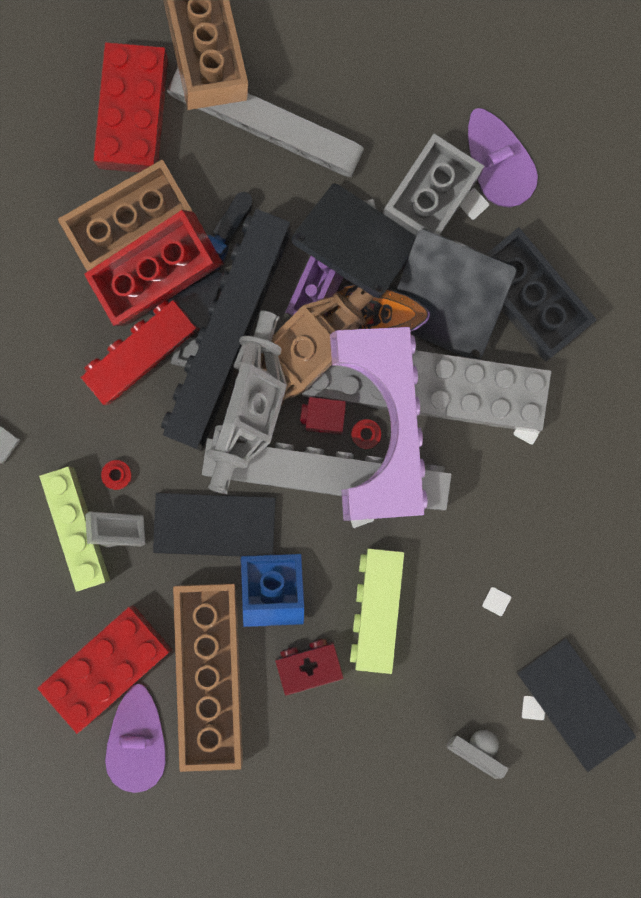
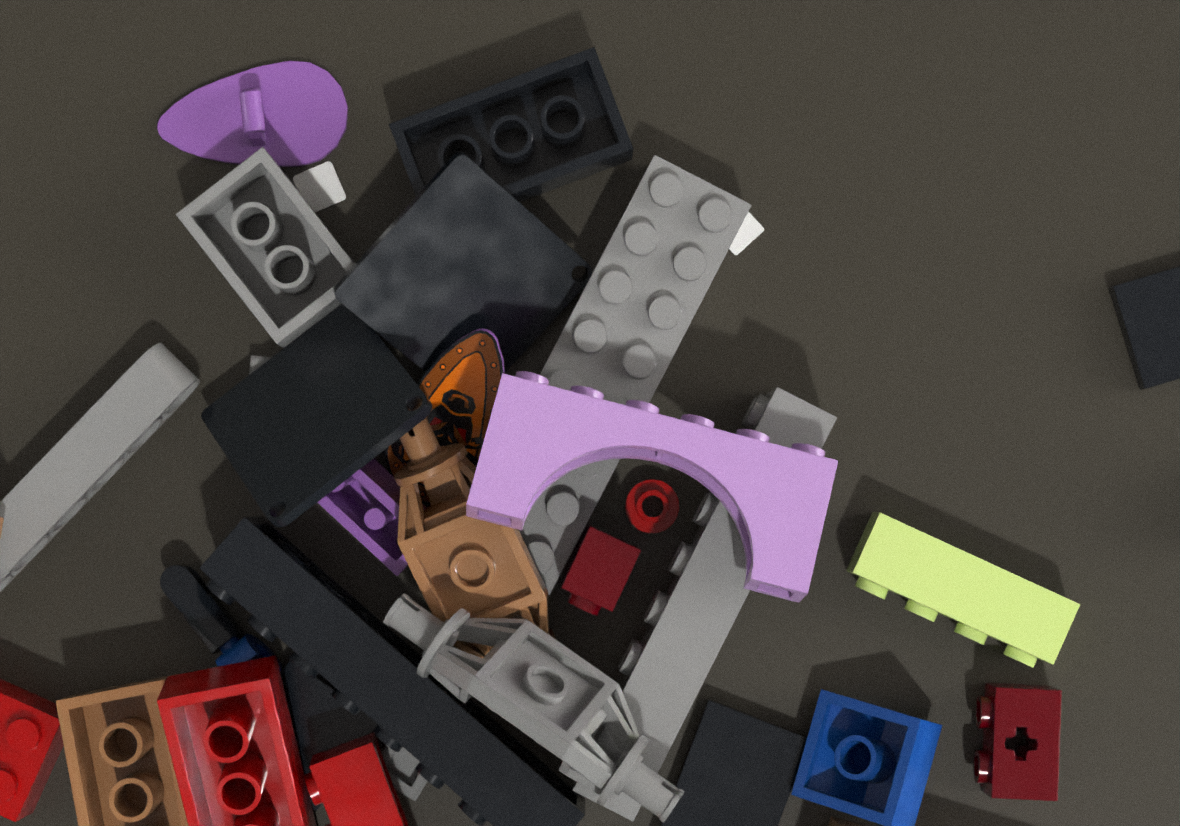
camera: 75 degrees left, 0 degrees up
(496, 601) = (1009, 381): white sticker -> none

